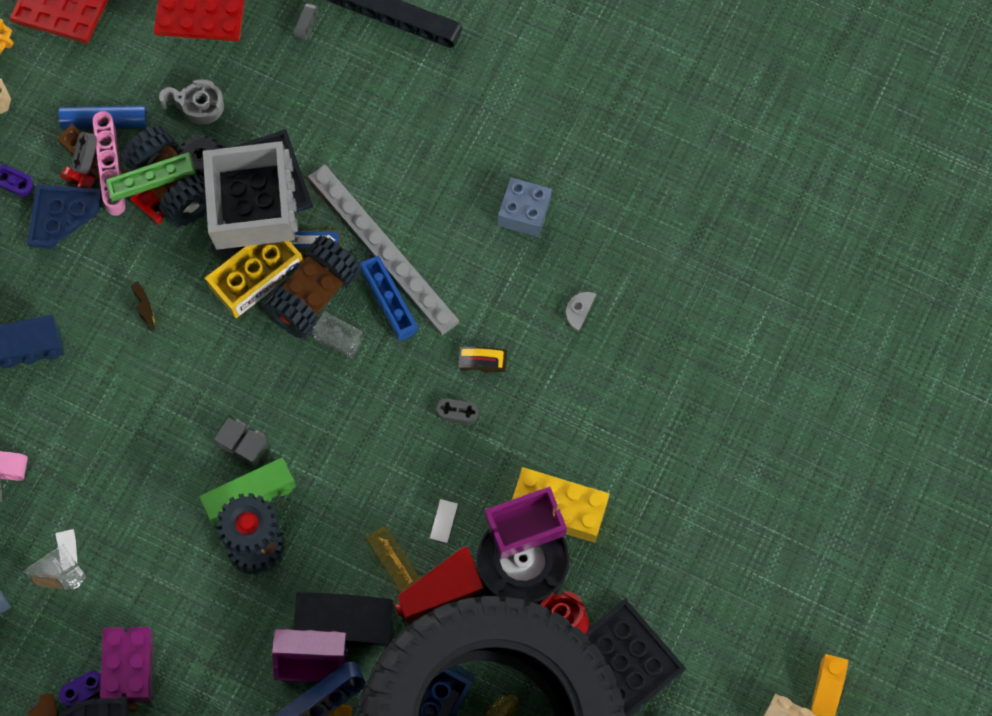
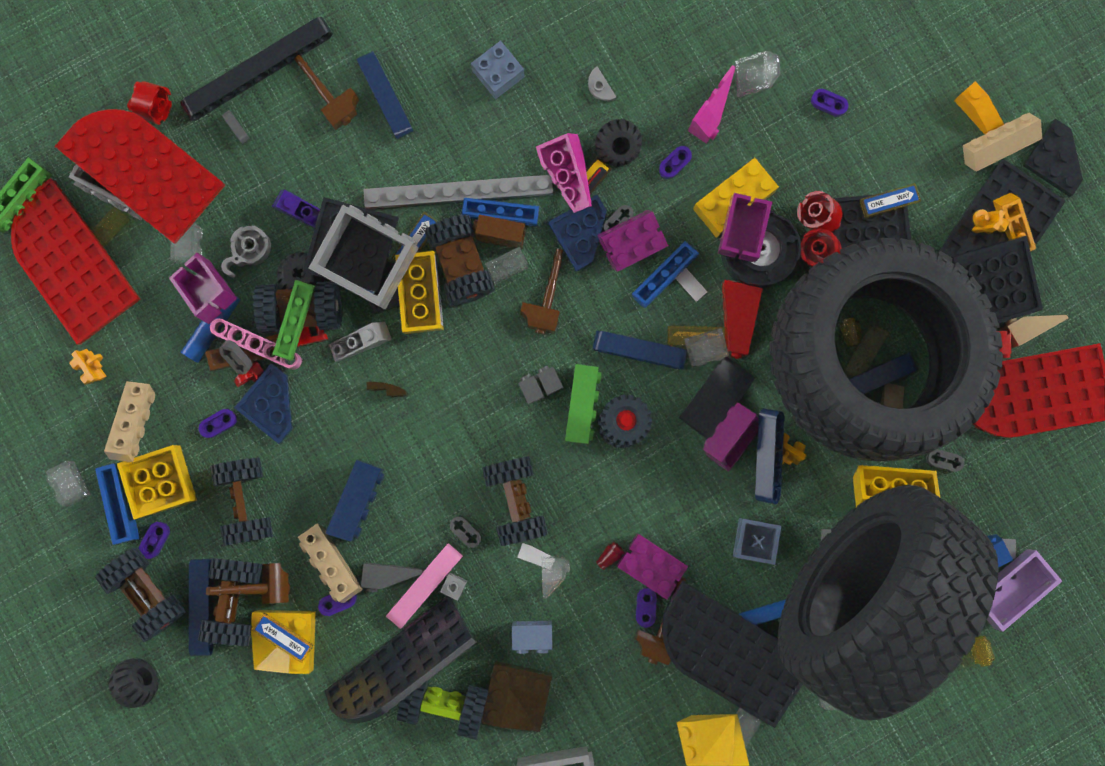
camera: 55 degrees left, 15 degrees up
(55, 467) = (462, 535): none -> dark grey beam
(90, 507) = (519, 508): none -> black plate
(113, 618) = (610, 555): none -> dark red cone
(127, 88) = (204, 292): none -> magenta piece
(164, 50) = (187, 245): none -> clear brick
(176, 253) = (360, 341): none -> light grey slope
(264, 115) = (296, 208): none -> dark purple slope
(311, 402) = (544, 318): none -> reddish brown piece
(341, 513) = (639, 350): none -> dark blue beam
(366, 307) = (499, 231): none -> reddish brown brick
(385, 96) = (338, 110): none -> reddish brown piece
(385, 573) = (706, 347): none -> clear brick
(421, 382) = (579, 232): none -> dark blue plate
(428, 126) = (384, 95): none -> dark blue beam
(434, 488) = (665, 274): none -> blue brick
(444, 433) = (632, 240): none -> magenta piece
(478, 324) = (566, 166): none -> dark pink wedge
(524, 351) = (623, 153): none -> black wheel
(554, 425) = (673, 162): none -> dark purple plate
(600, 593) = (820, 211): none -> red brick
(620, 426) = (708, 117): none -> dark pink wedge
(664, 657) = (890, 200): none -> tile
(700, 444) = (756, 73): none -> clear slope
(723, 535) = (829, 101): none -> dark purple plate

